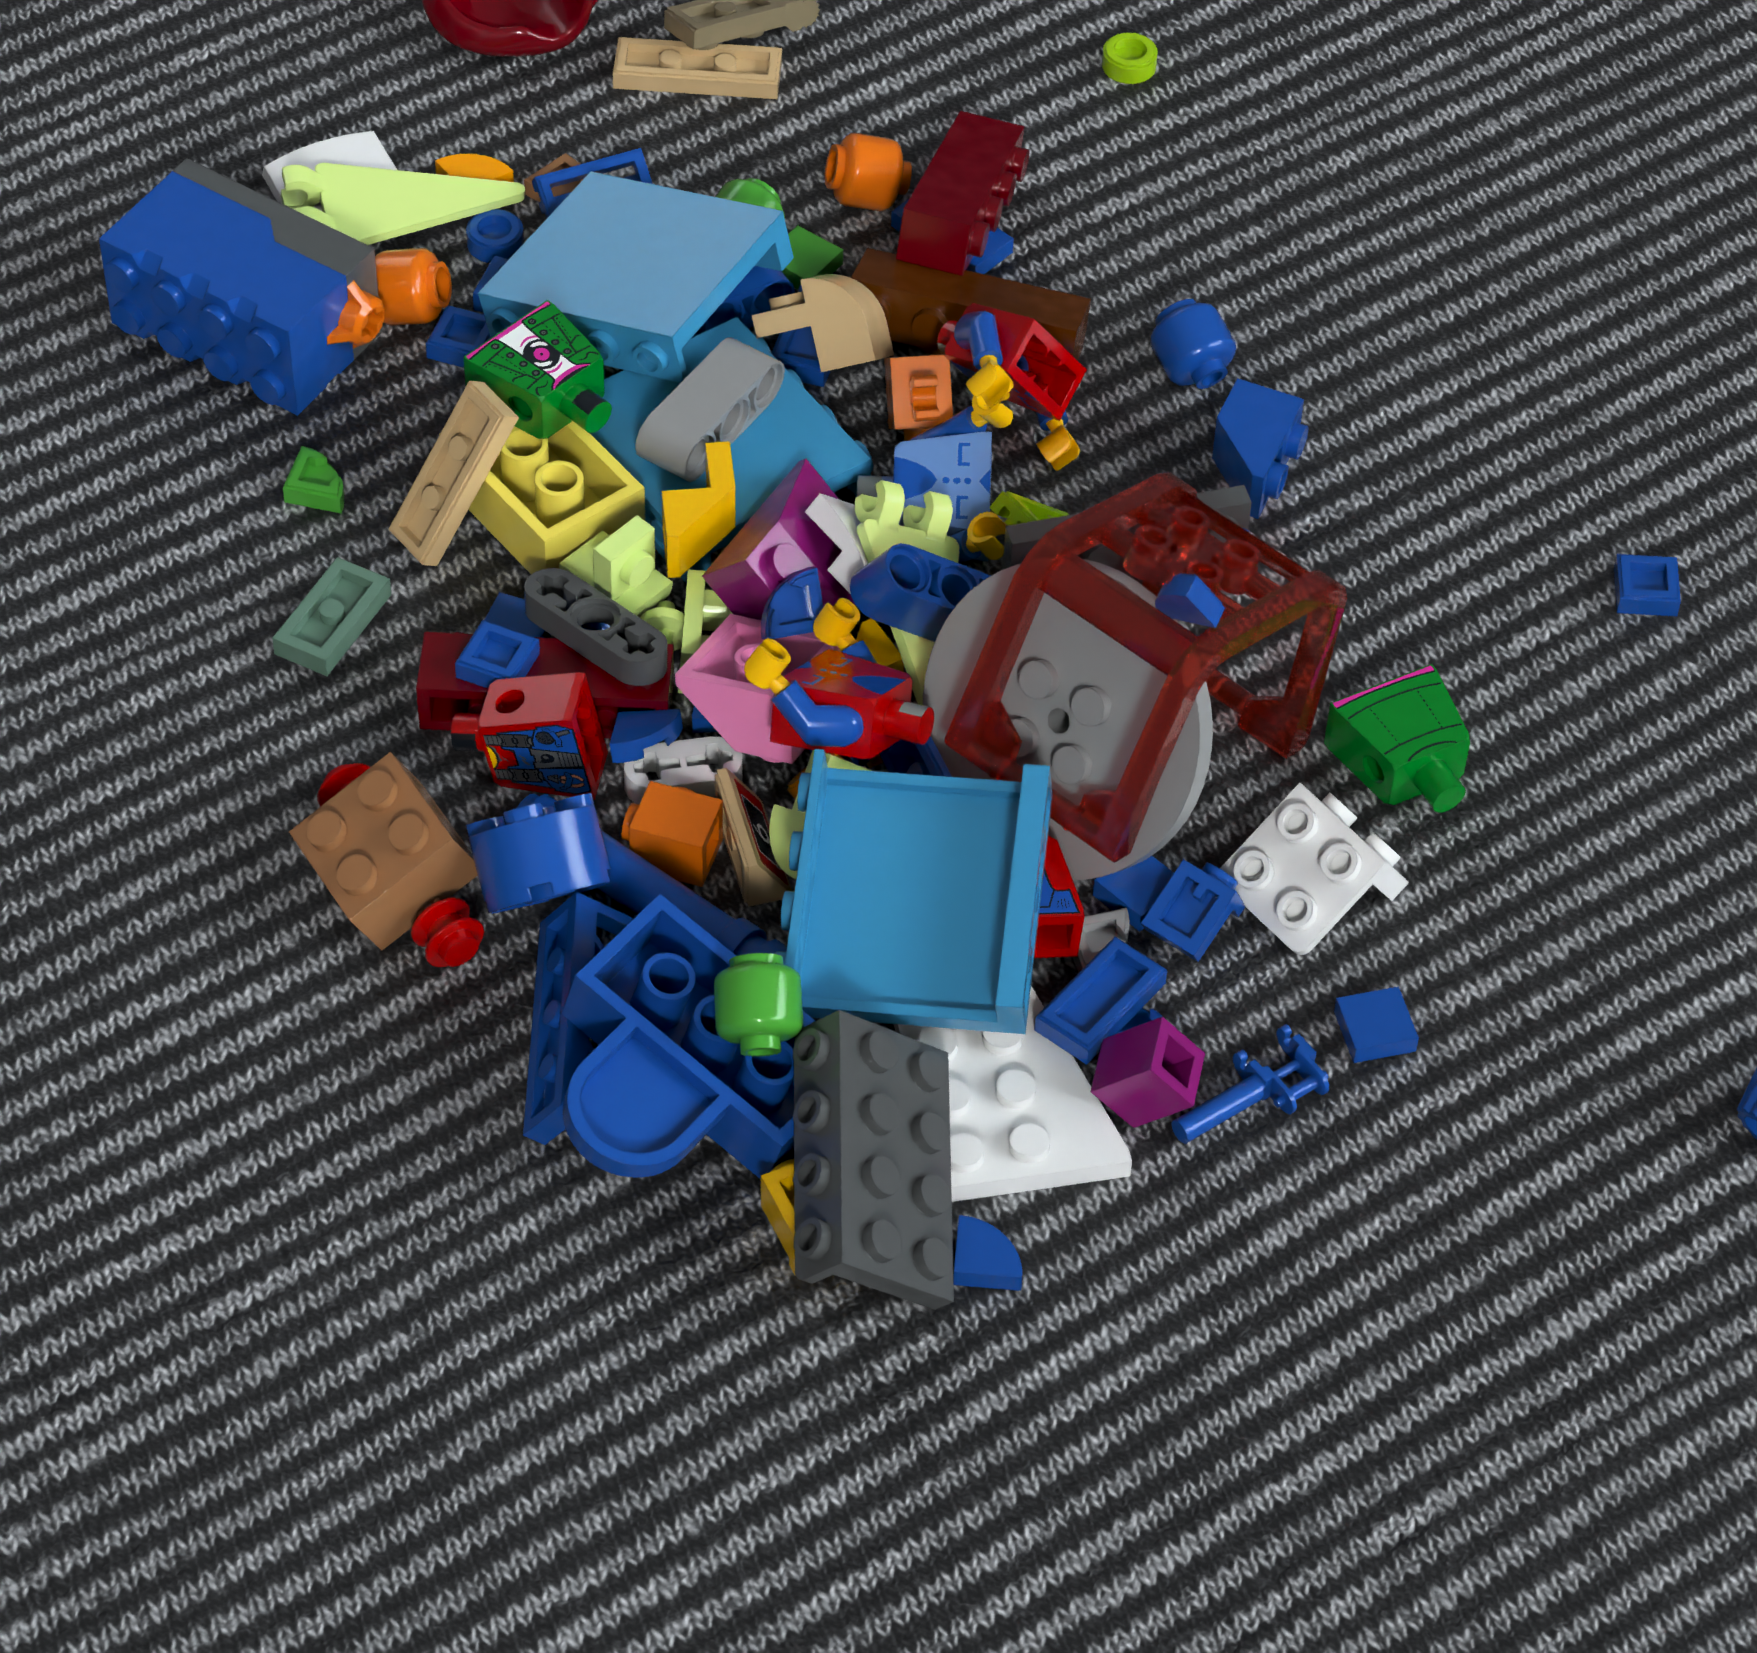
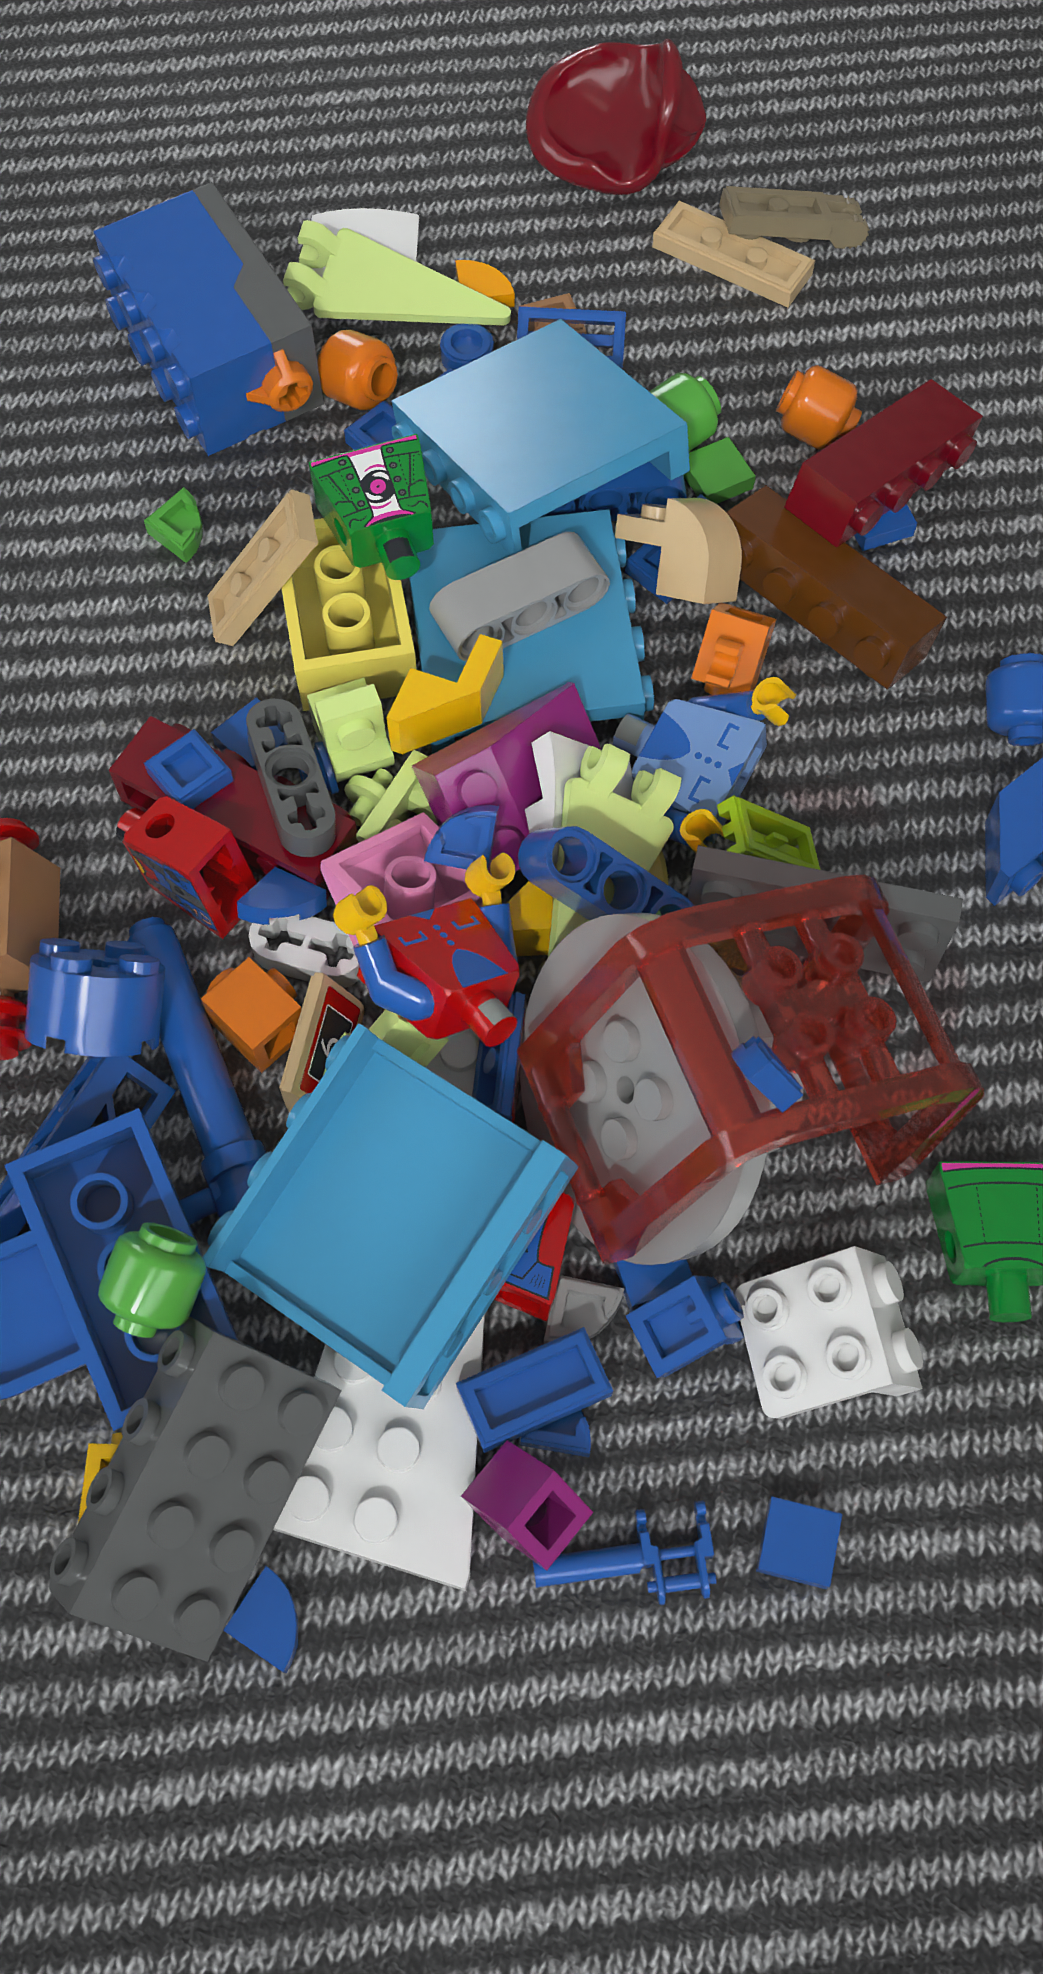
camera: 30 degrees right, 15 degrees up
(331, 616) = (104, 662): sand green plate -> none
(1017, 357) = (829, 664): torso -> none

